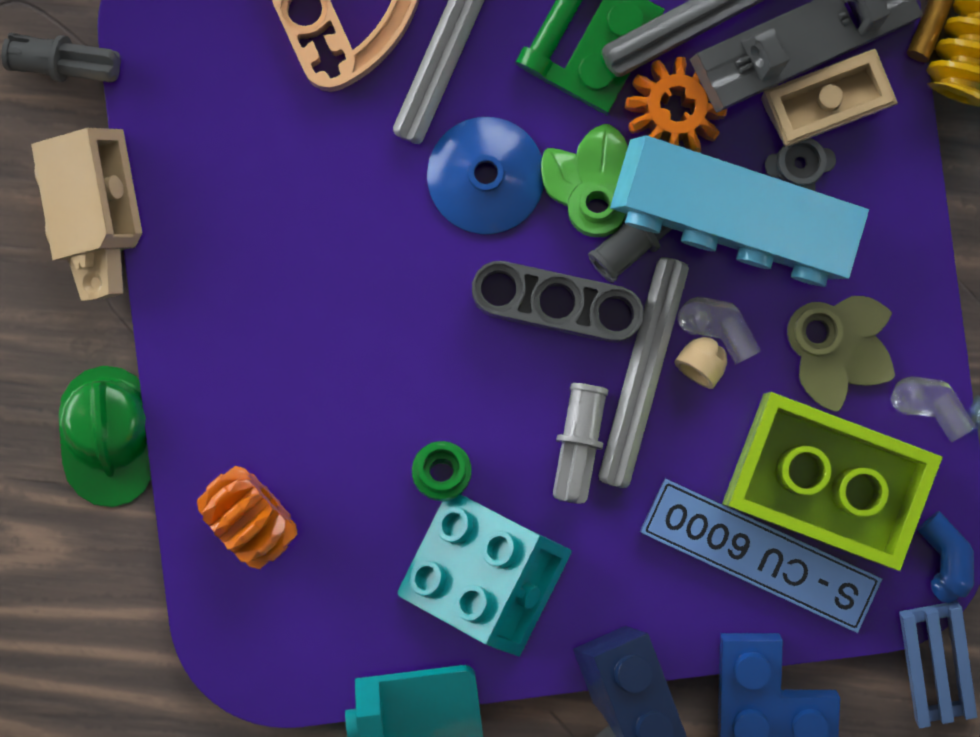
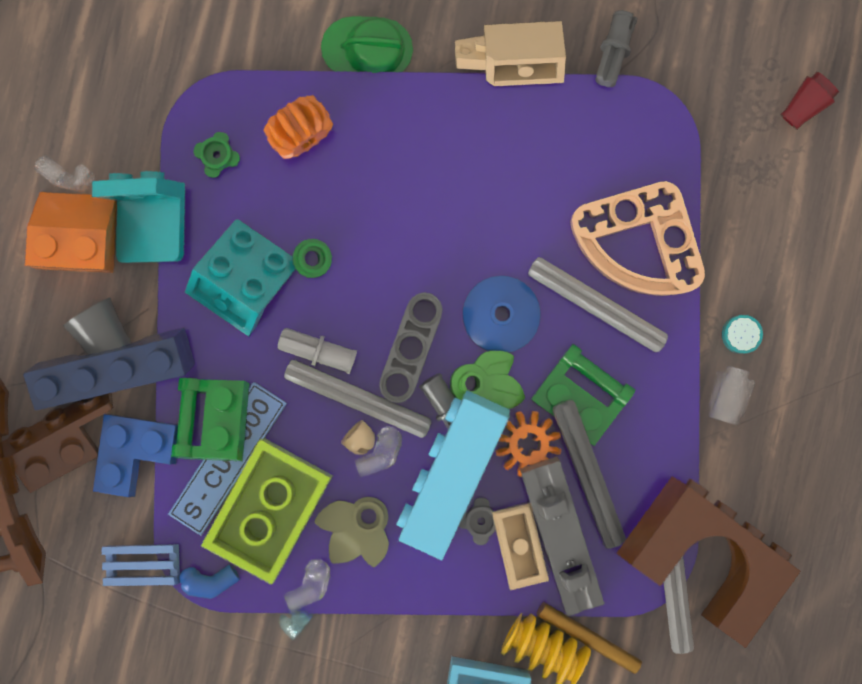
camera: 90 degrees right, 0 degrees up
(303, 655) = (218, 143): none -> green plate
(706, 569) = (222, 422): none -> green plate

